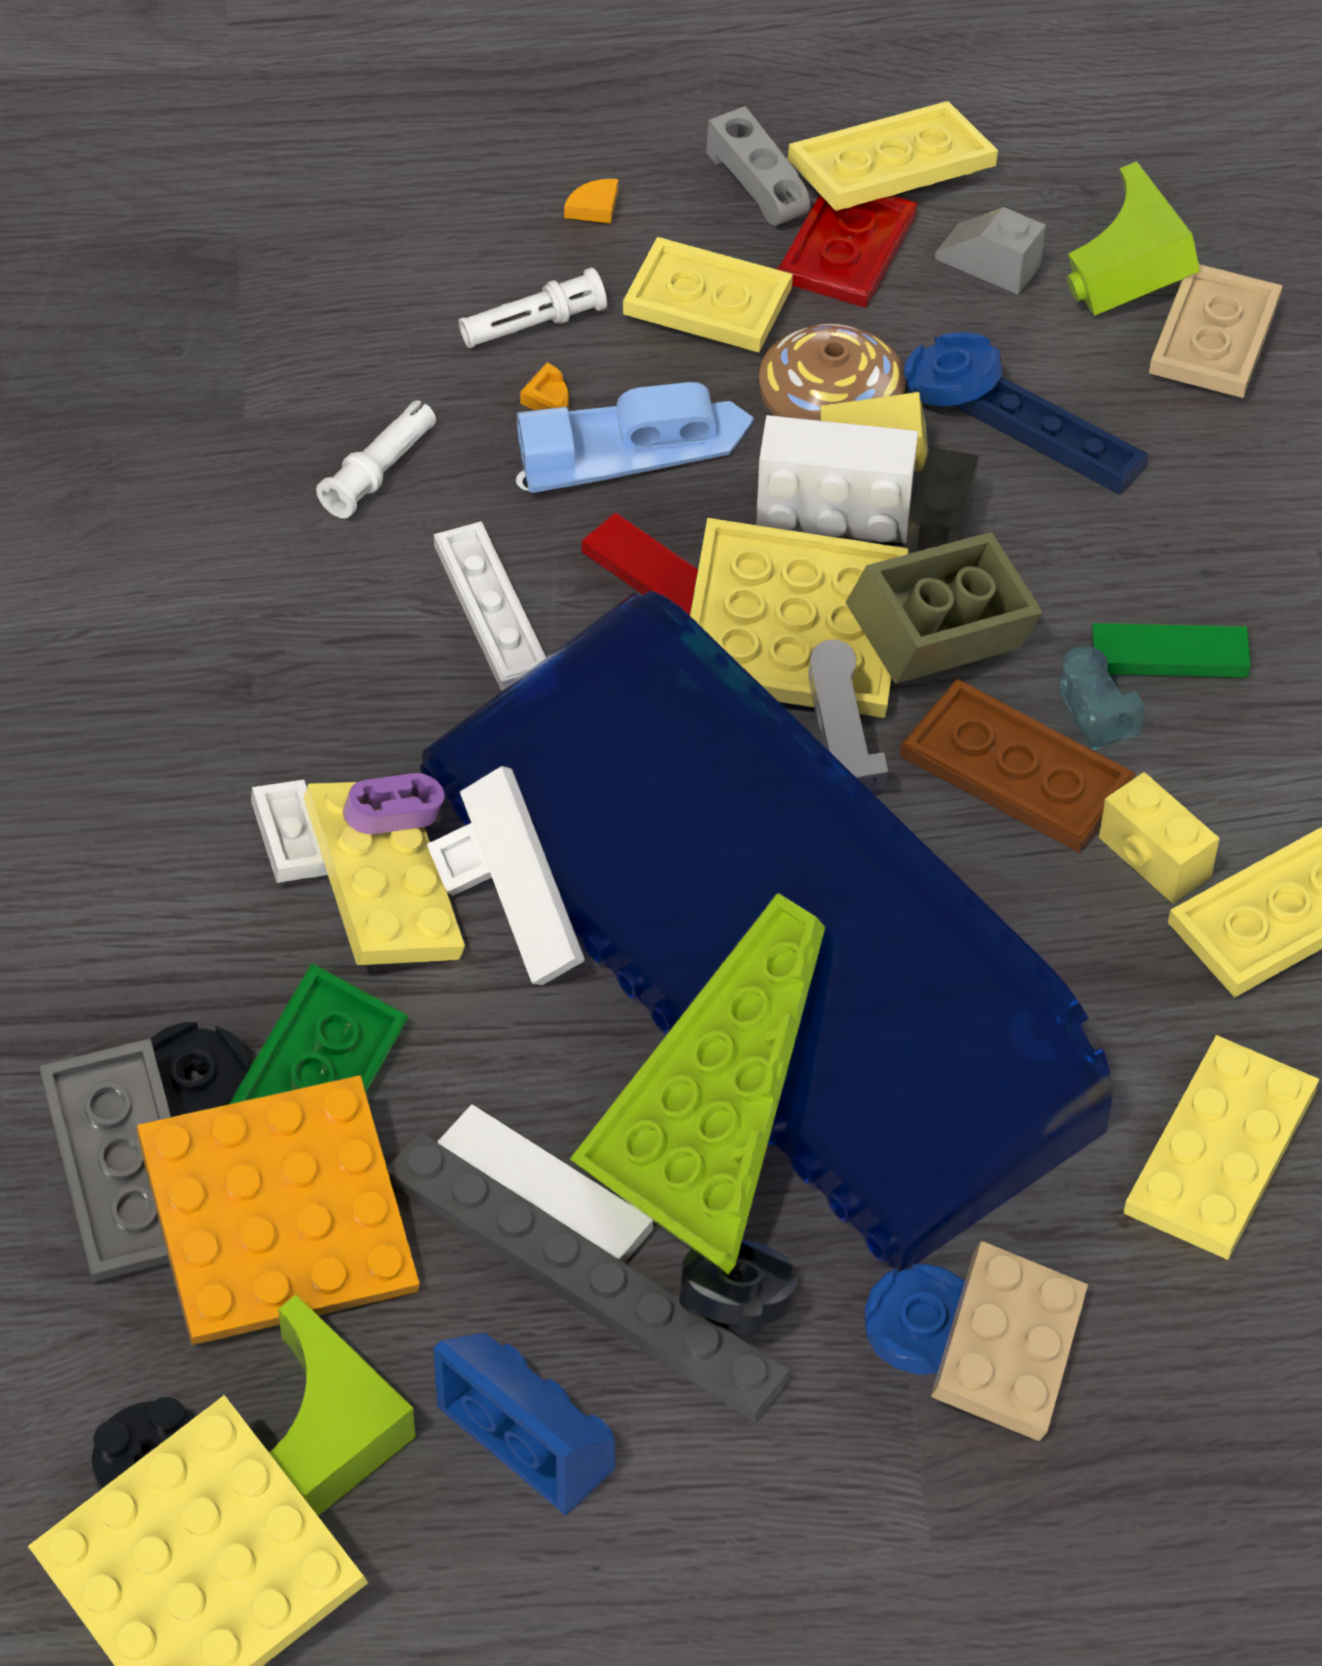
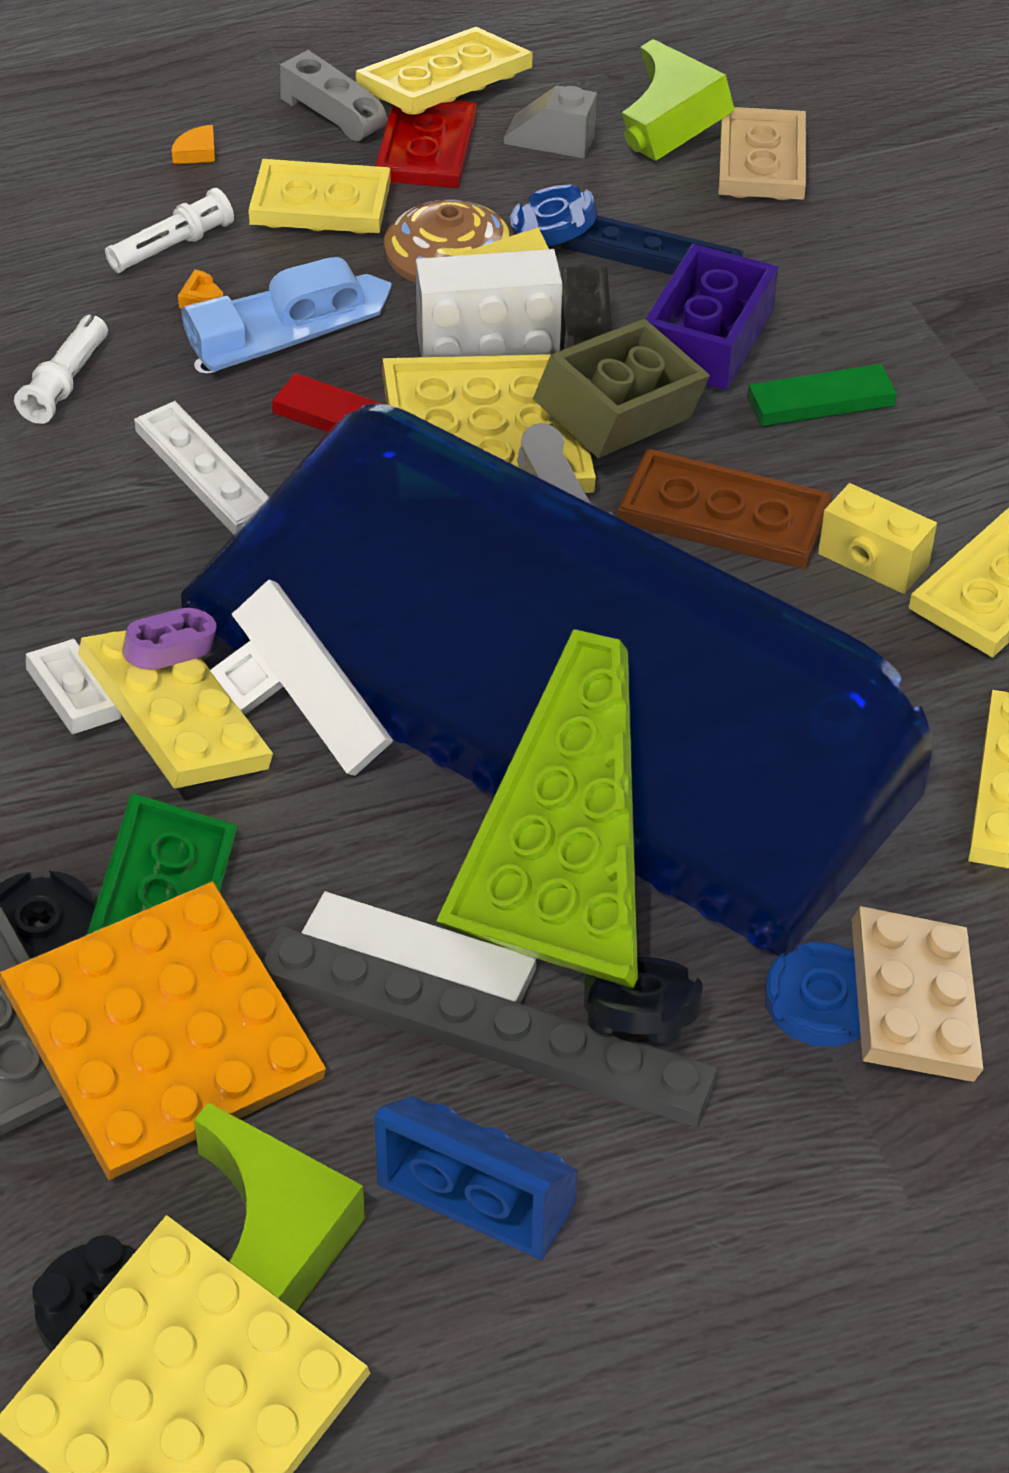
camera: 15 degrees left, 5 degrees down
(1079, 531) = (716, 309): none -> dark purple brick
(1096, 701) = (777, 442): clear light blue leg -> none

